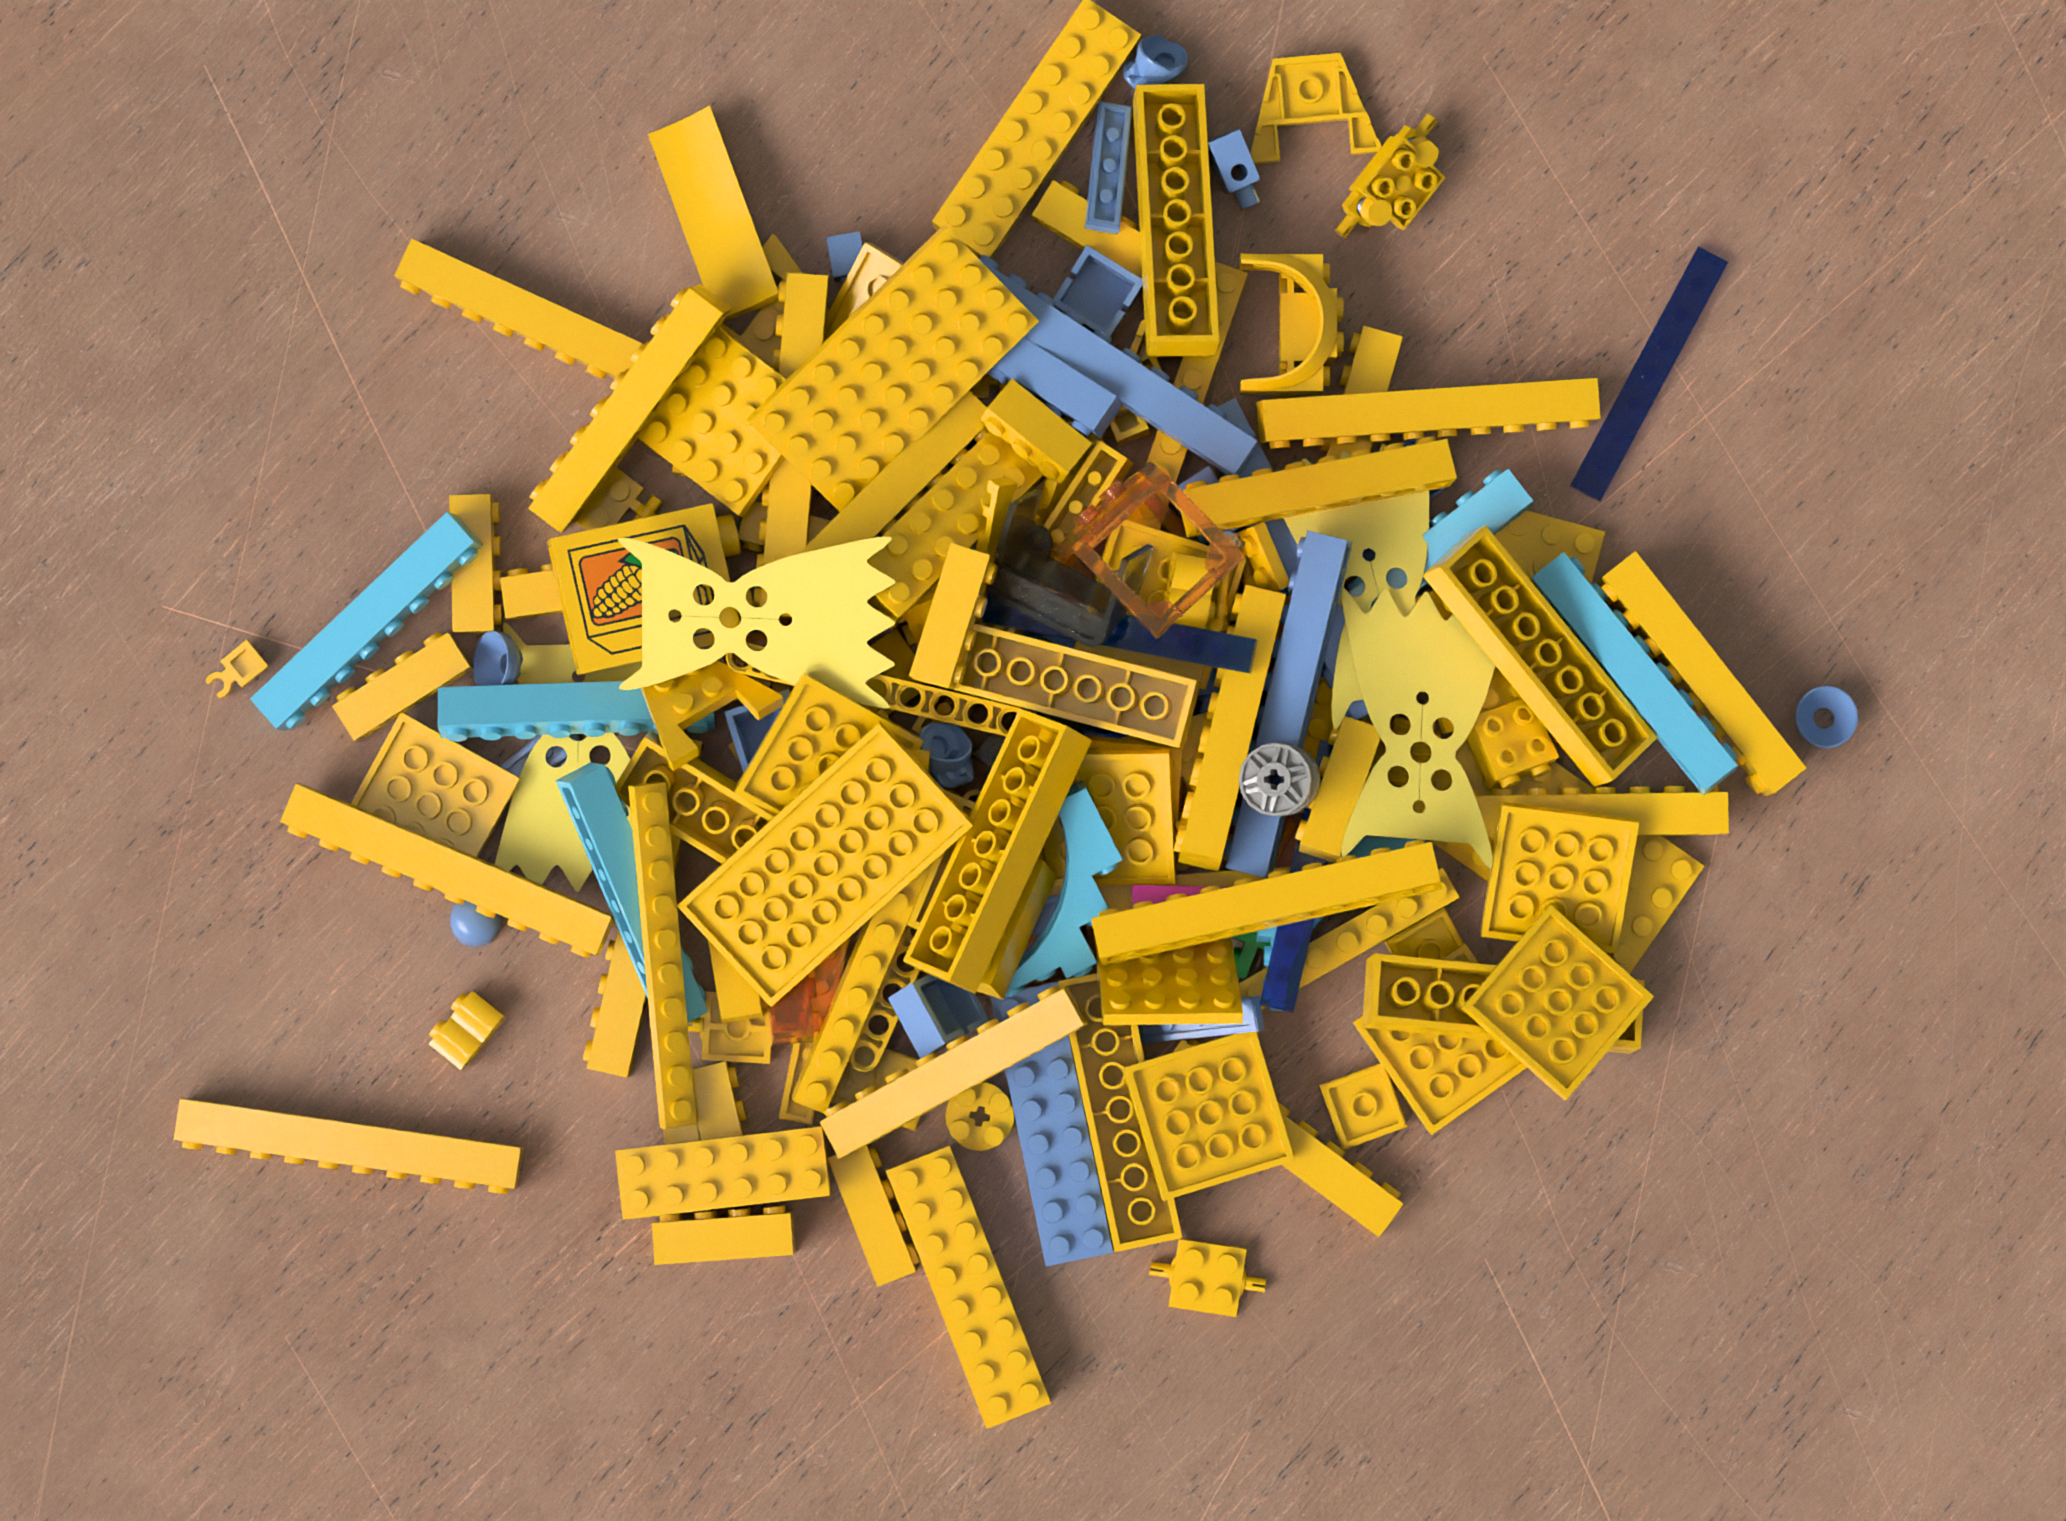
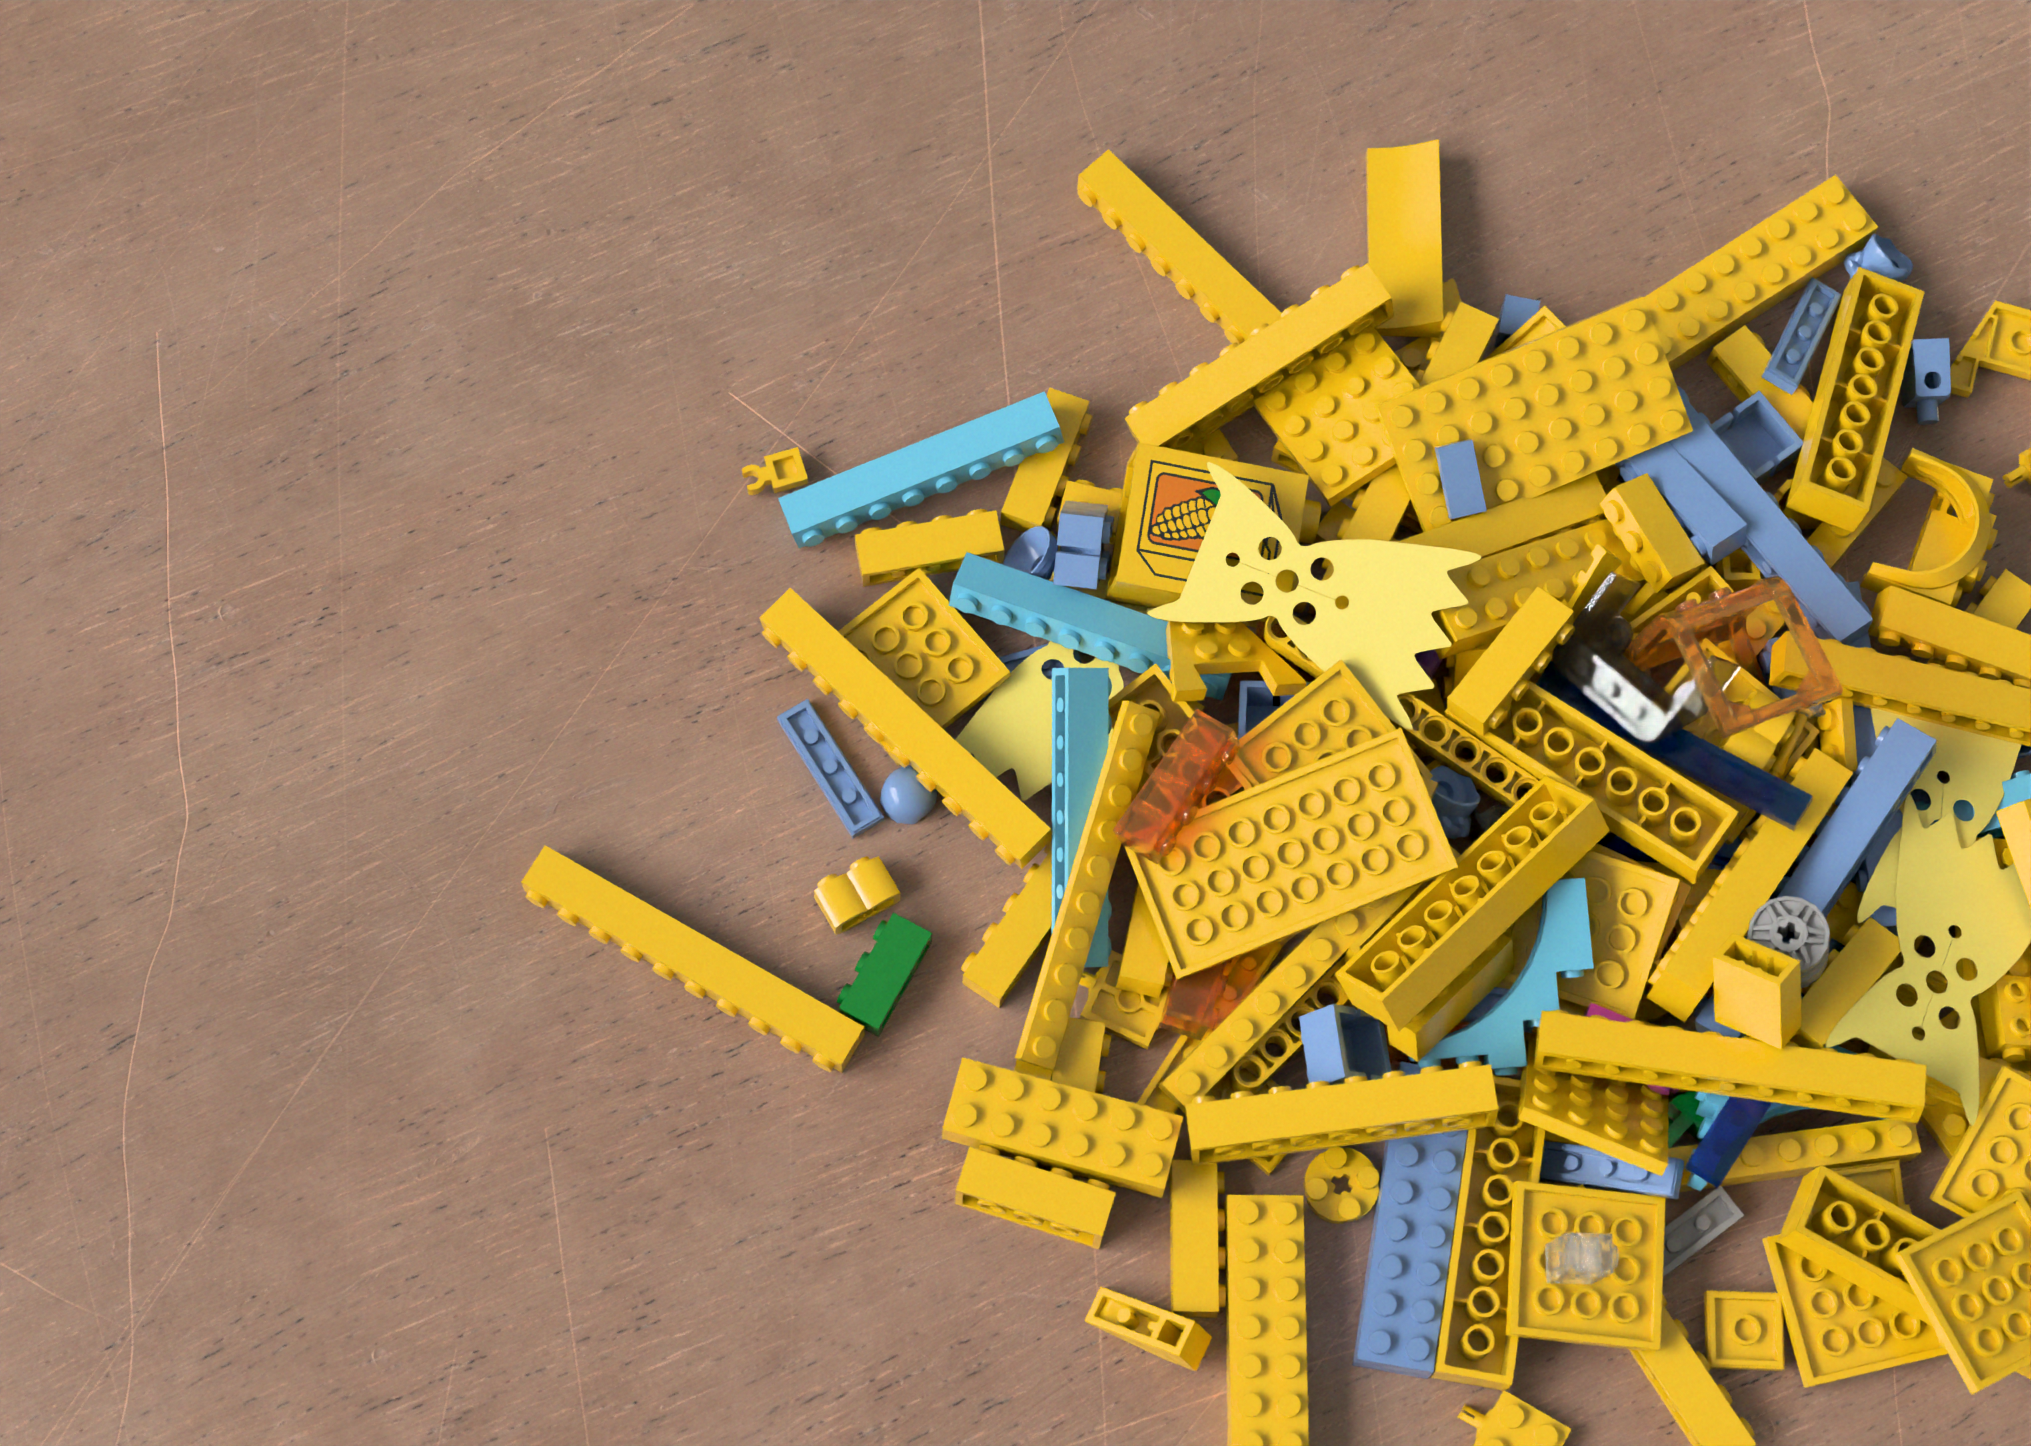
camera: 20 degrees right, 15 degrees down
(397, 923) = (830, 768): none -> medium blue tile
(518, 1090) = (884, 973): none -> green brick
(537, 638) = (1082, 538): none -> medium blue piece
(706, 846) = (1177, 787): none -> clear orange brick
(848, 455) = (1460, 479): none -> medium blue tile
(863, 1305) = (1149, 1328): none -> yellow slope
(1199, 1120) = (1580, 1258): none -> clear brick
(1265, 837) = (1757, 991): none -> yellow brick
(1292, 1037) = (1698, 1227): none -> light grey plate

